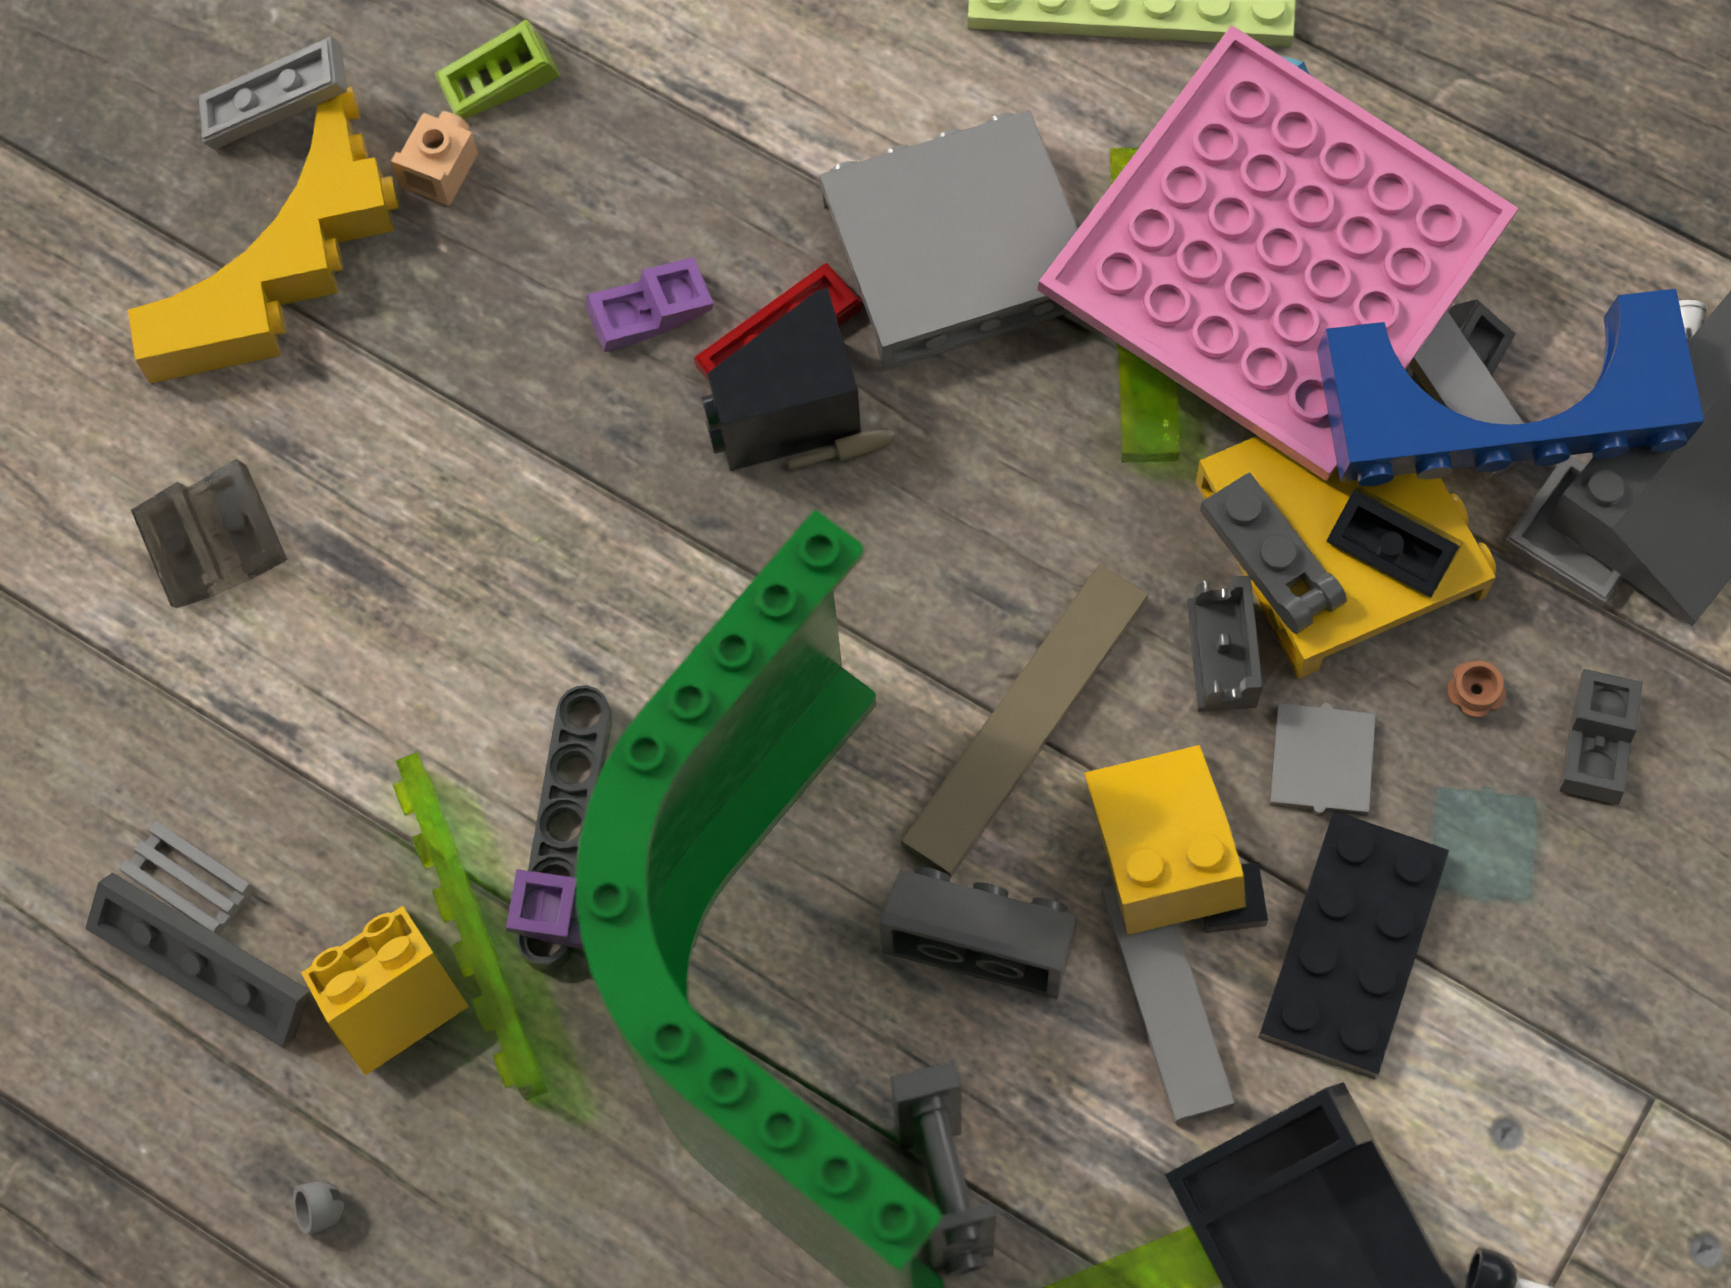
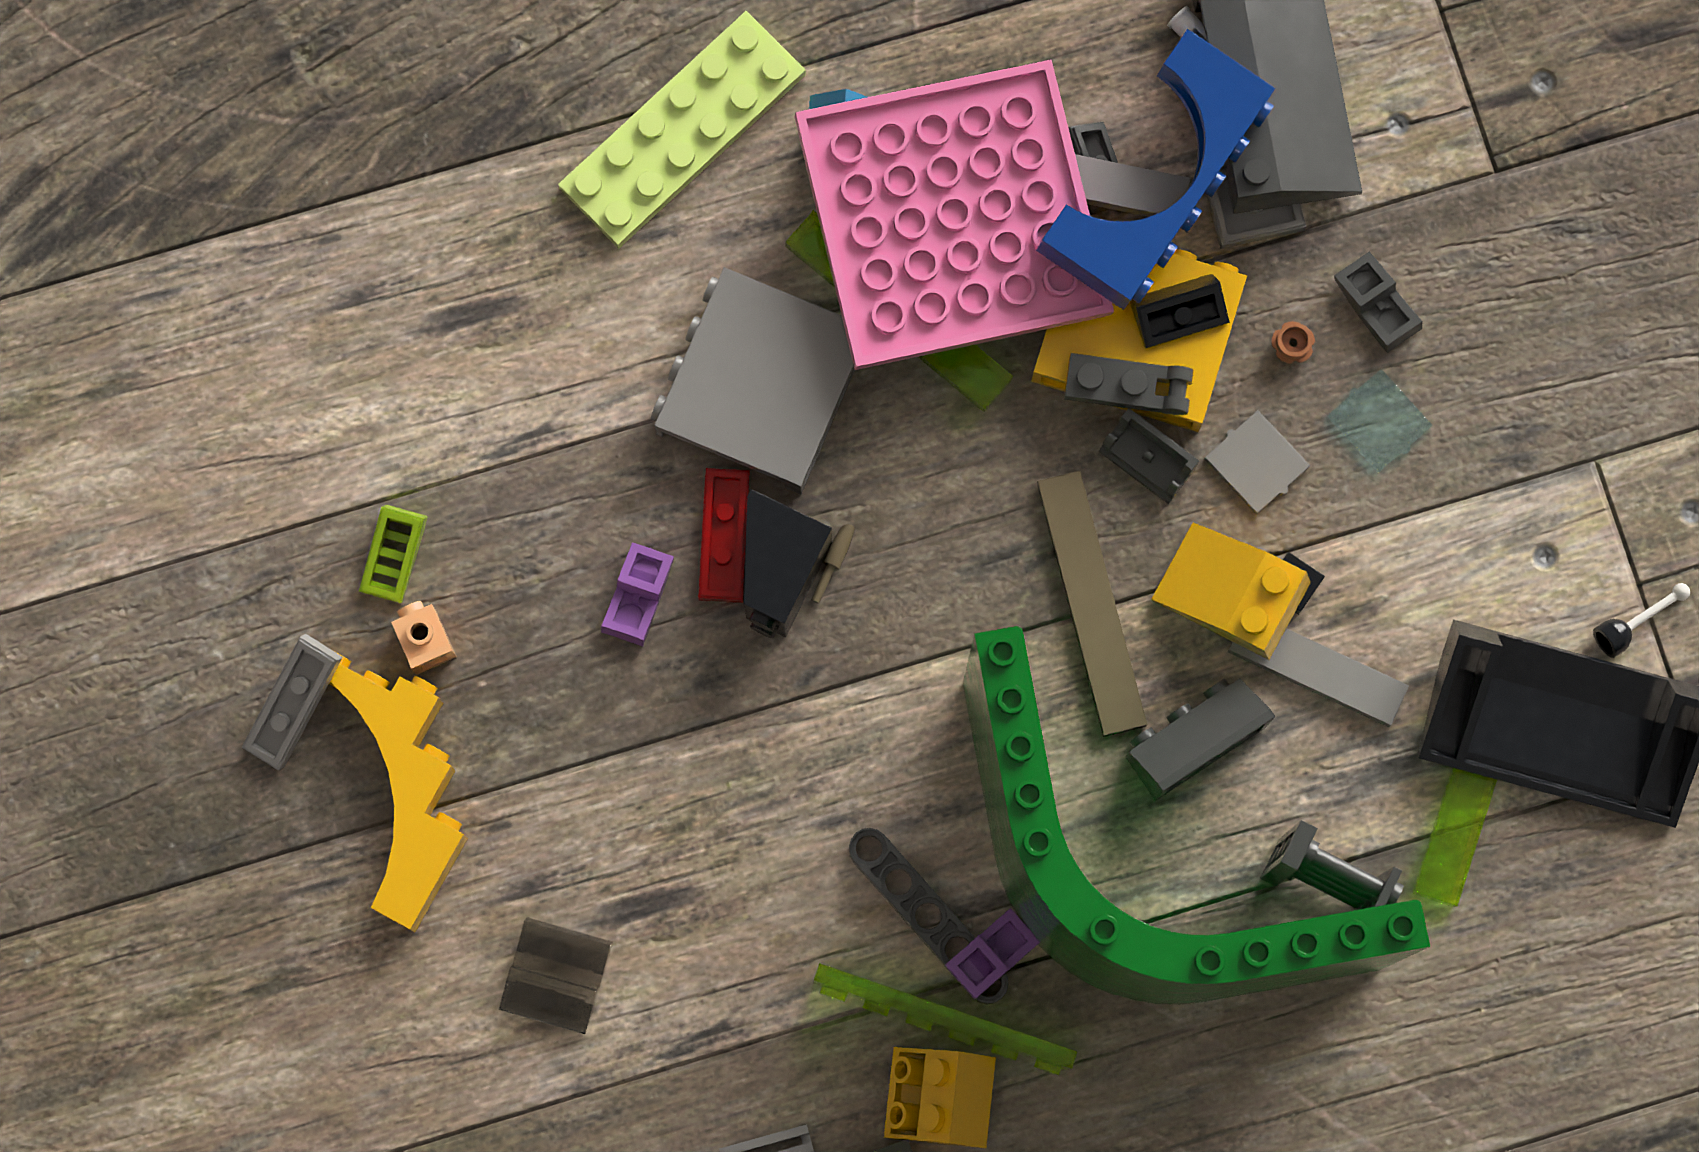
camera: 55 degrees left, 10 degrees up
(1354, 945) = (1376, 541): black plate -> none

